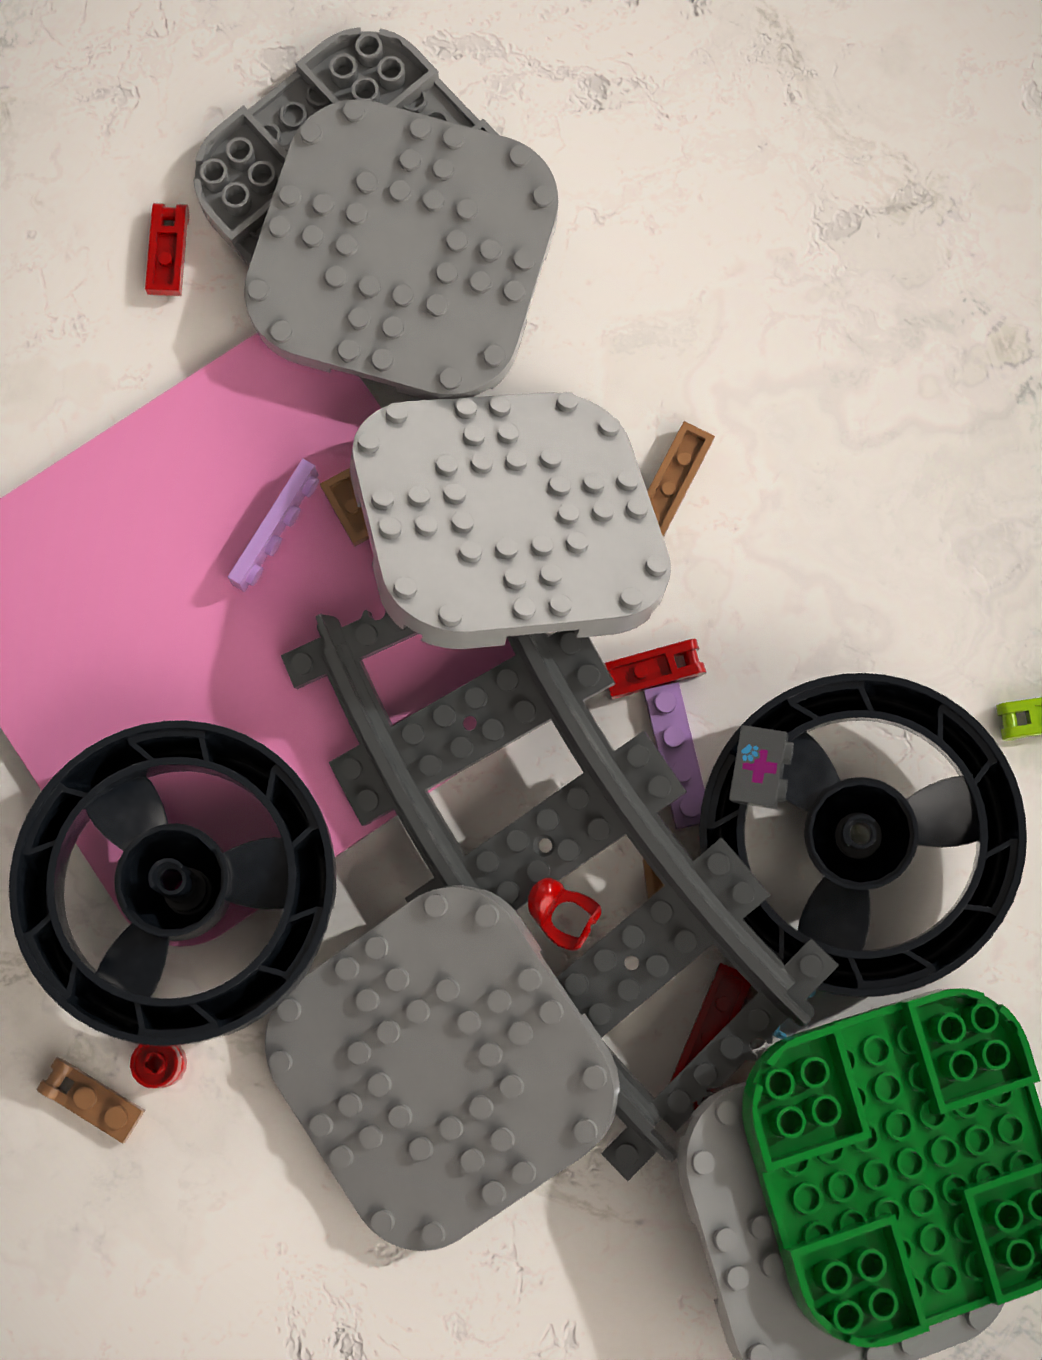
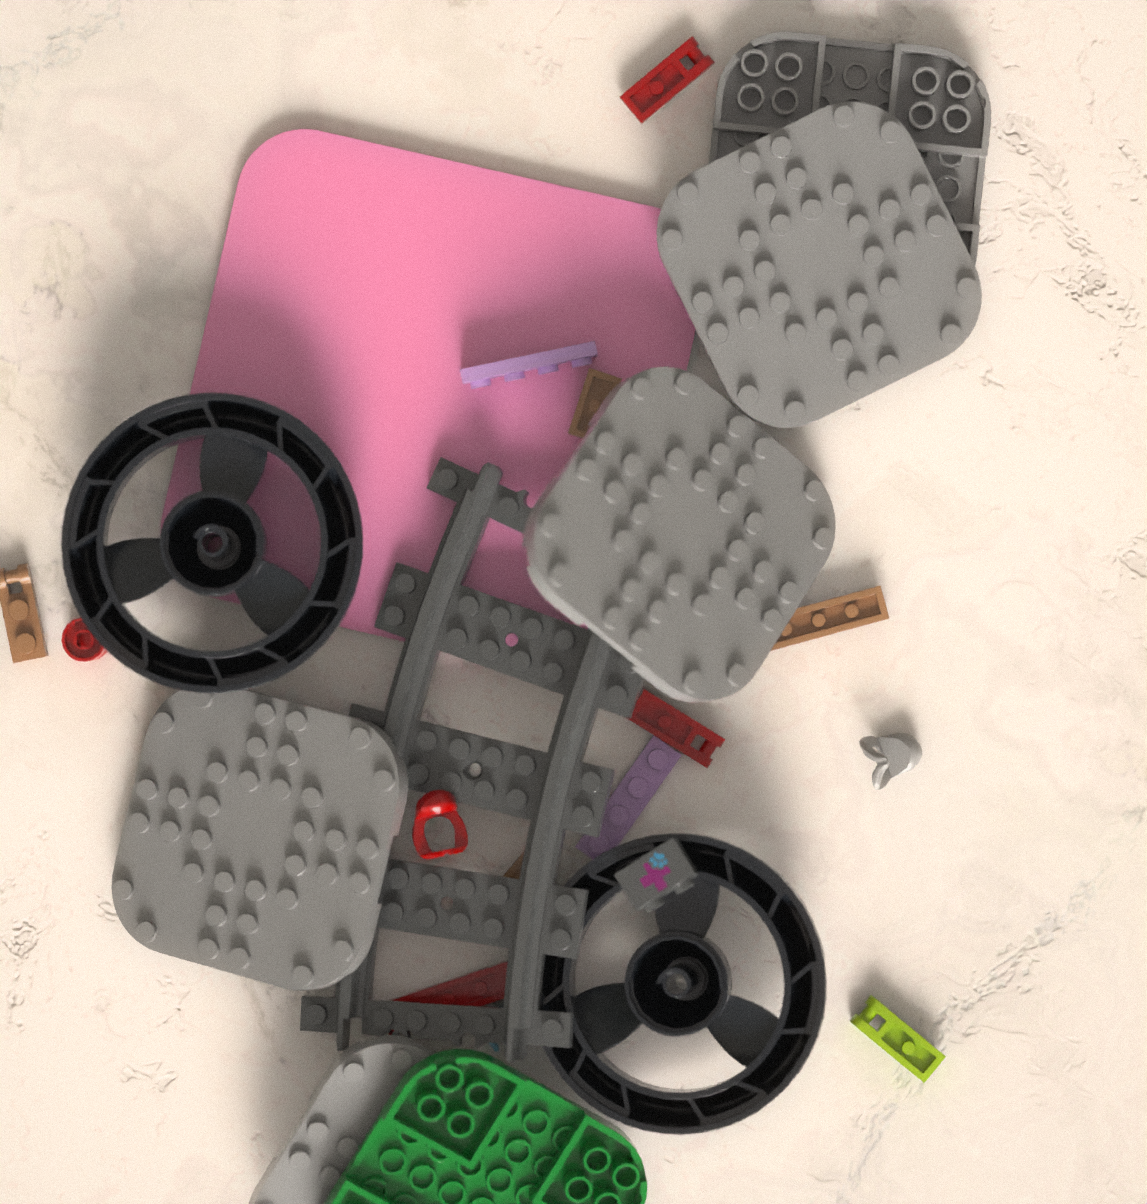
camera: 50 degrees right, 10 degrees up
(825, 521) = (896, 756): none -> light grey piece

